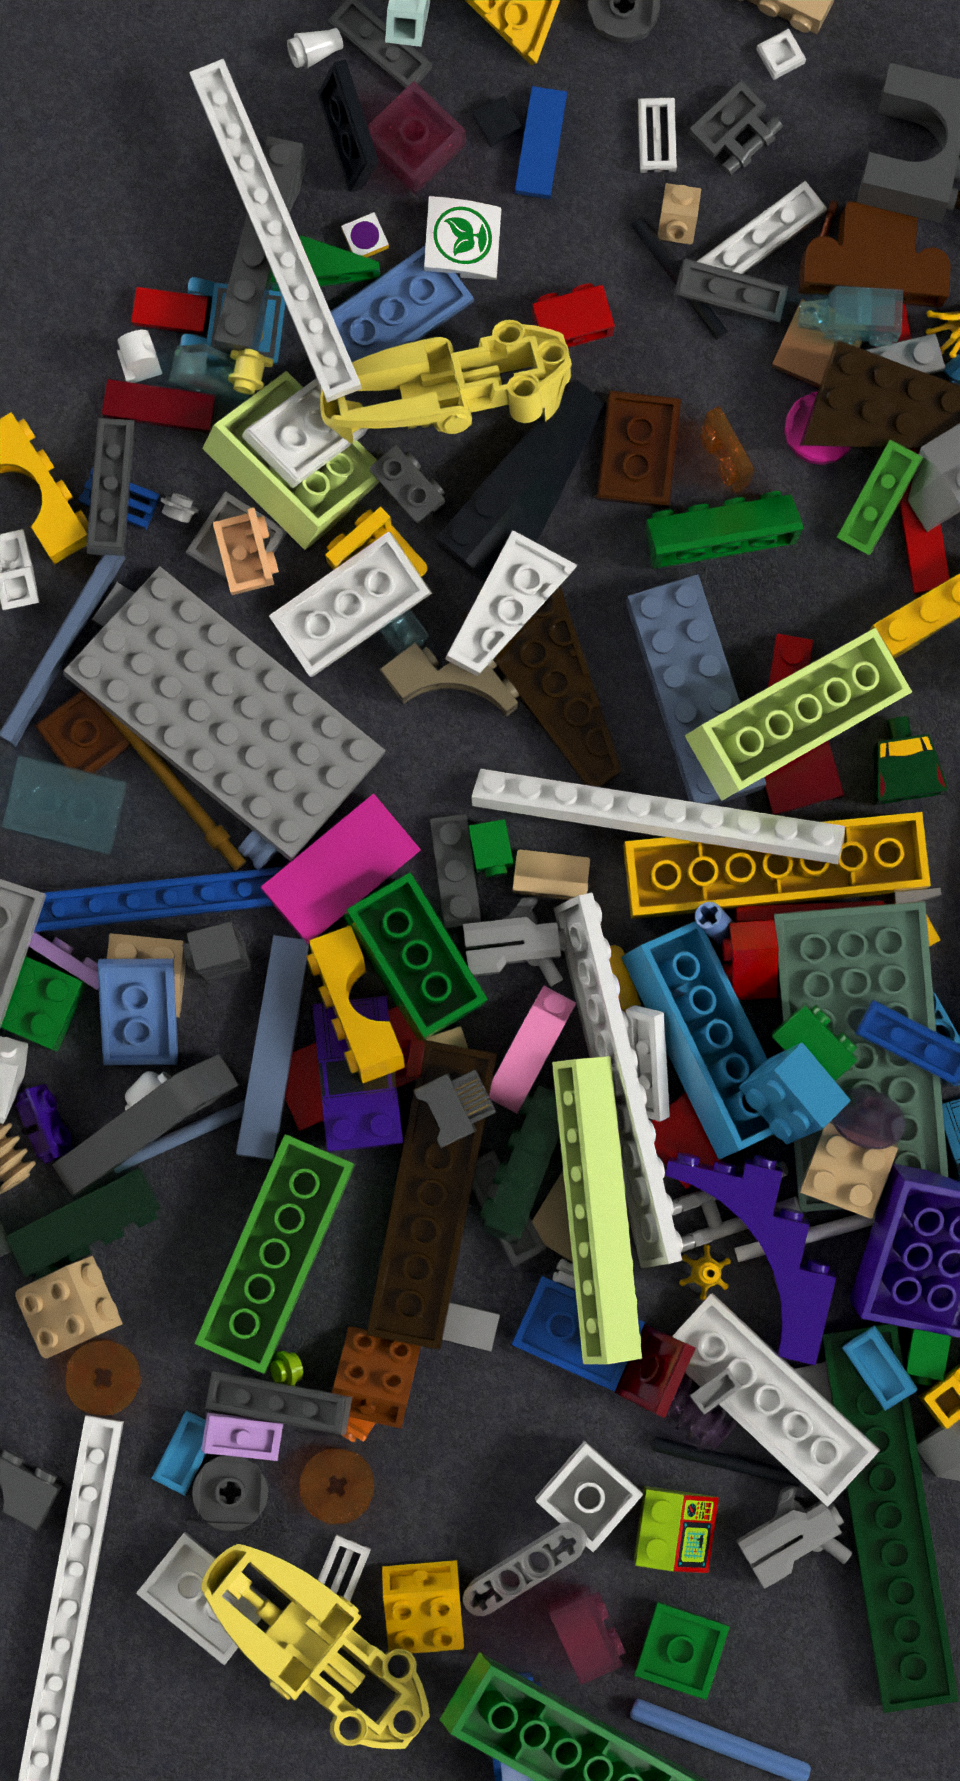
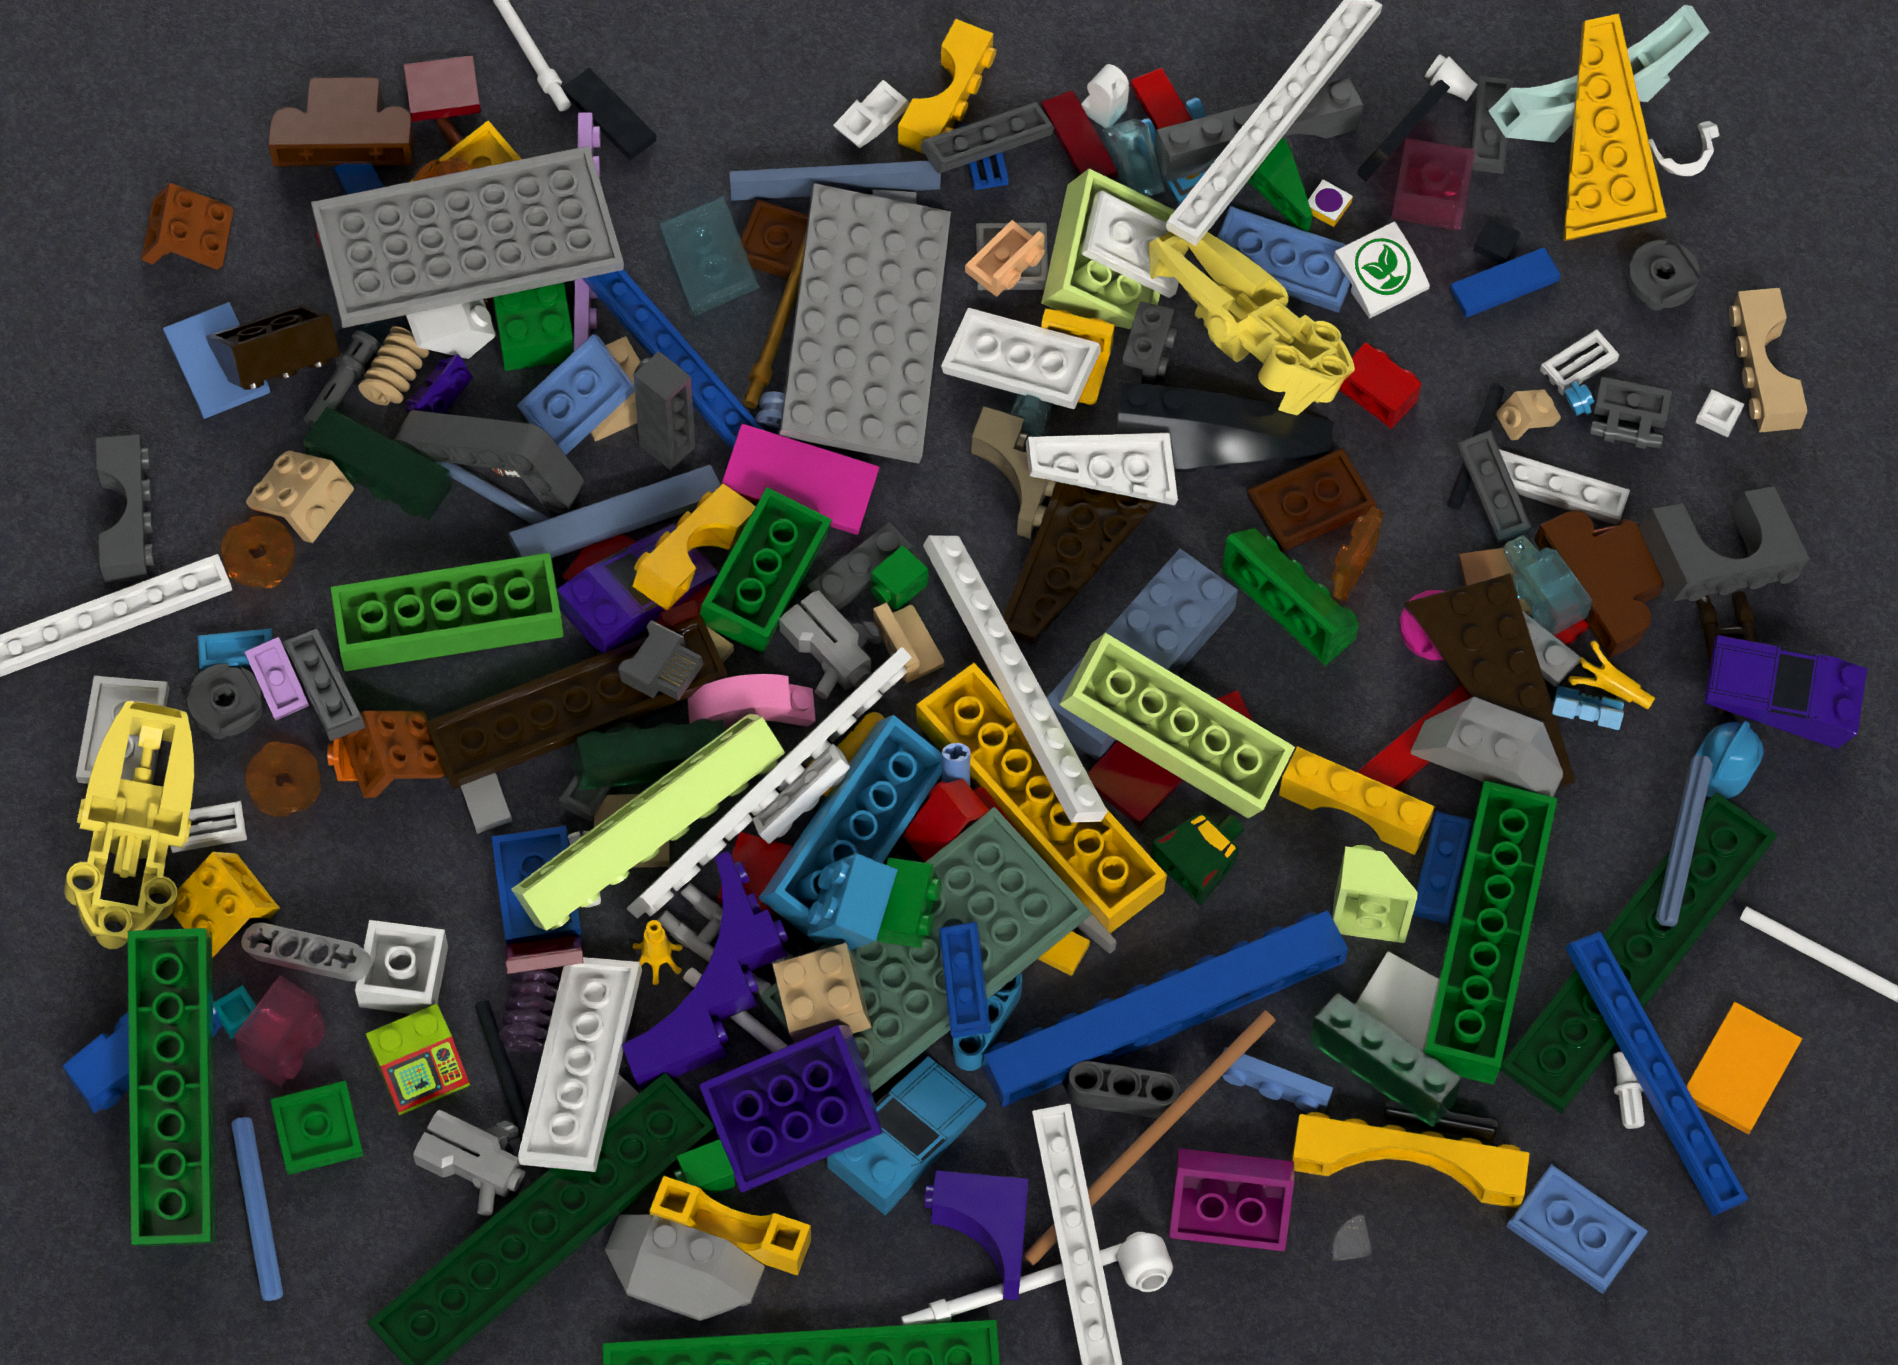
camera: 55 degrees right, 20 degrees down
(179, 507) = (1007, 197): light grey plate -> none
(248, 370) = (1153, 175): light yellow brick -> none
(286, 1368) = (357, 679): lime plate -> none
(529, 1653) = (234, 1010): none -> teal tile
(695, 161) = (1579, 398): none -> dark azure plate
(715, 1391) = (557, 1008): light grey piece -> none
(870, 1119) = (872, 978): clear purple dish -> none
(879, 1368) = (666, 1130): dark azure tile -> none
(880, 497) = (1409, 694): bright green plate -> none

